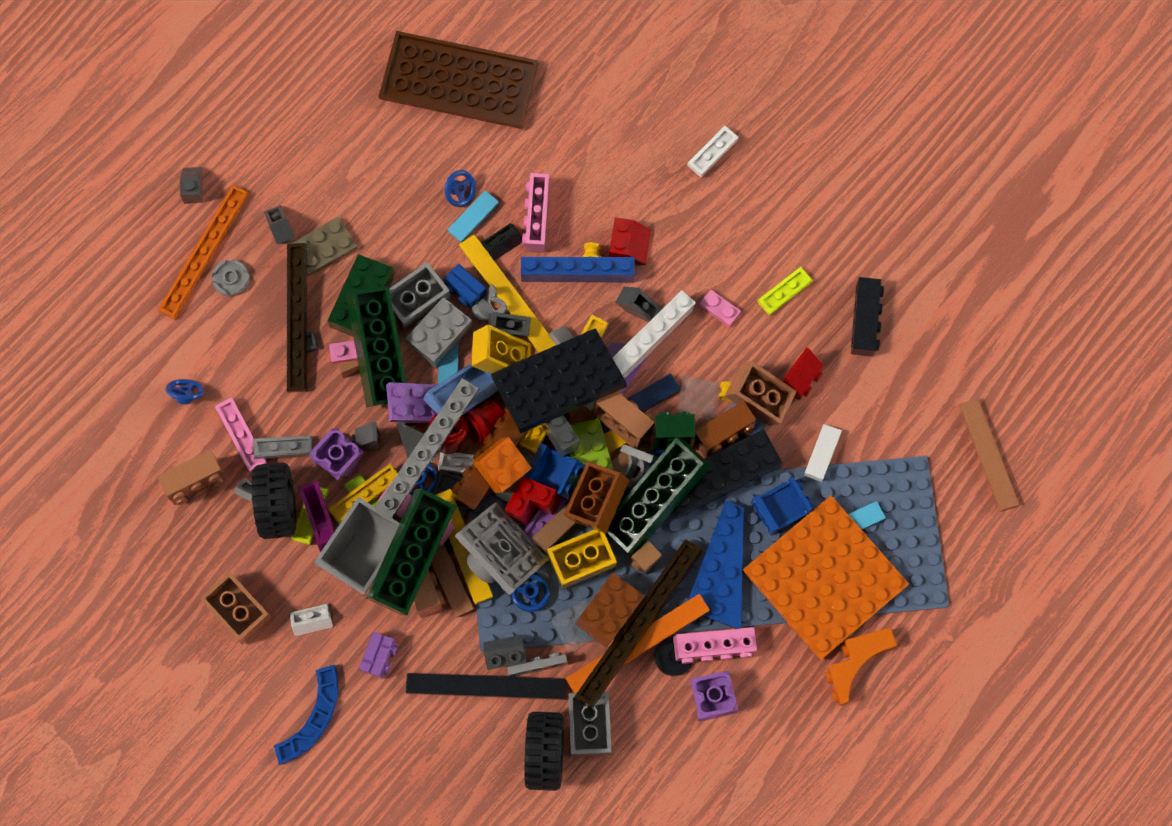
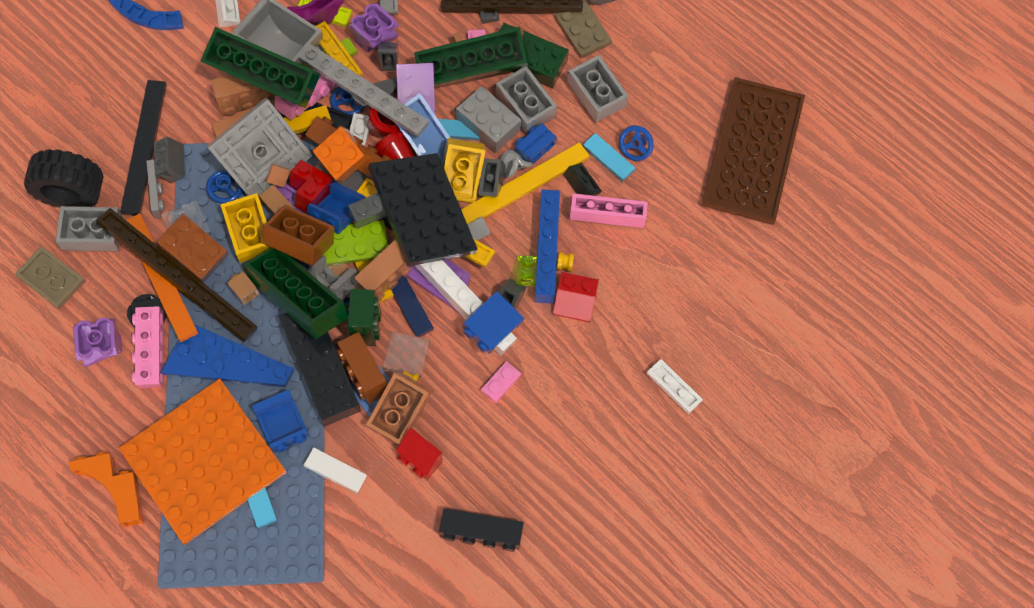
camera: 90 degrees right, 5 degrees down
(377, 655) = (183, 58): medium lavender brick -> none
(399, 226) = (597, 88): none -> light grey brick
(522, 533) = (277, 175): none -> nougat tile
(606, 287) = (527, 270): none -> clear neon green plate
(644, 760) = (50, 277): none -> dark tan plate
(670, 310) = (492, 323): none -> blue panel
(785, 291) = (516, 449): neon yellow tile -> none

